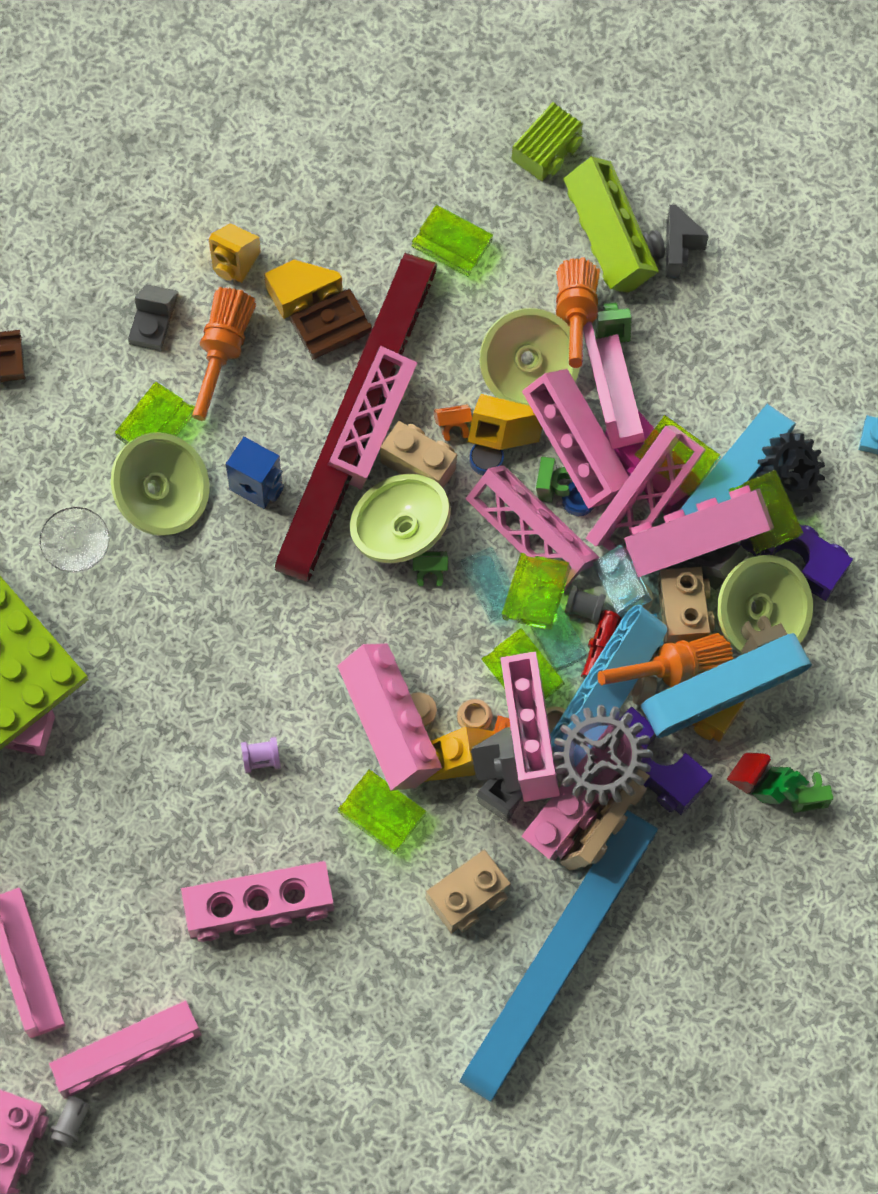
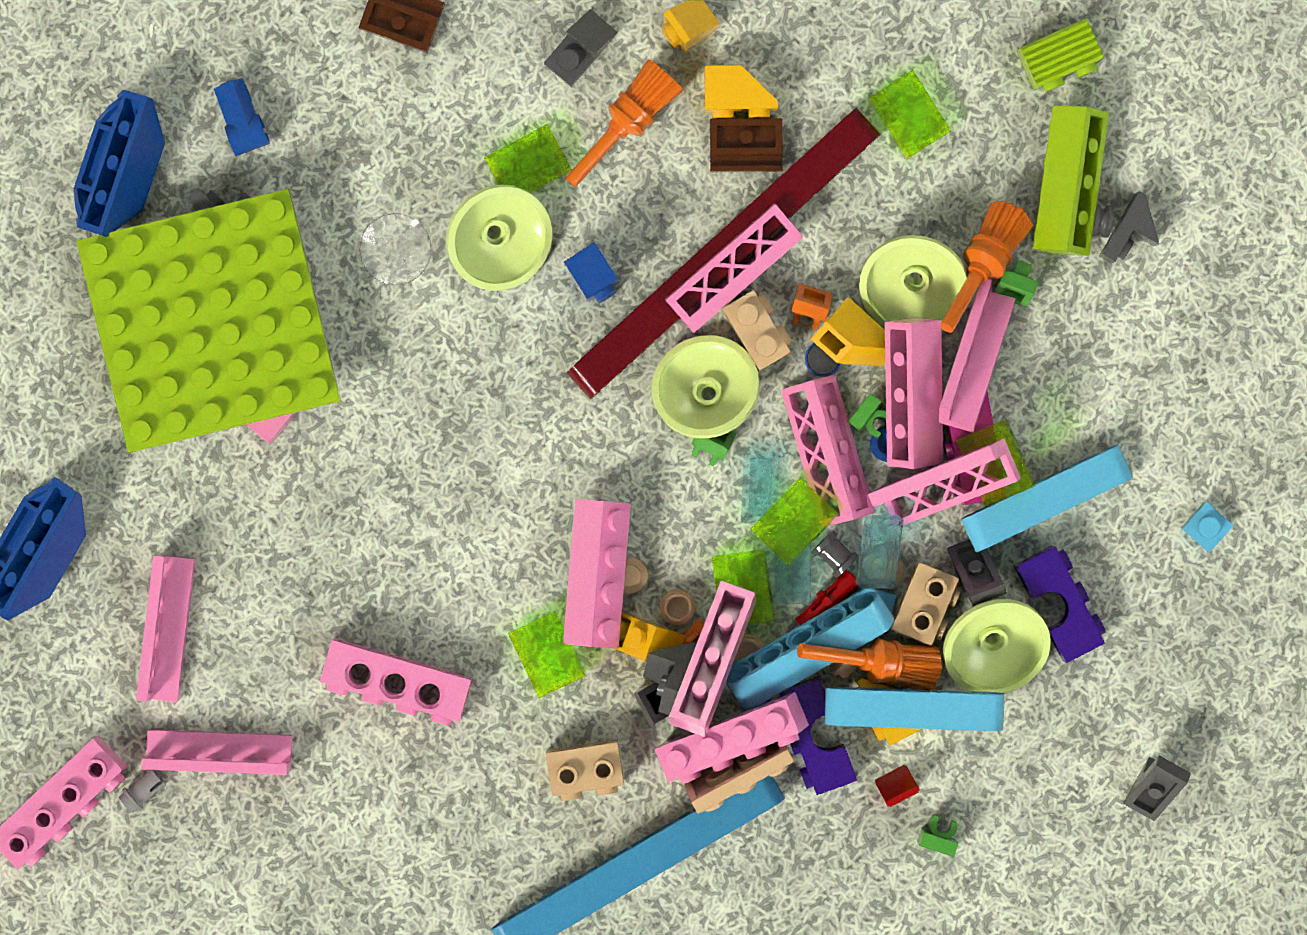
camera: 30 degrees right, 20 degrees up
(260, 755) = (465, 546): lavender bush -> none
(591, 768) = (763, 742): light grey gear -> none
(699, 532) = (971, 551): bright pink brick -> none
(759, 638) = (974, 681): dark tan tile -> none
(779, 785) = (915, 817): green plate -> none
(780, 511) = (1046, 561): clear neon green plate -> none
(795, 453) = (1099, 524): black gear -> none

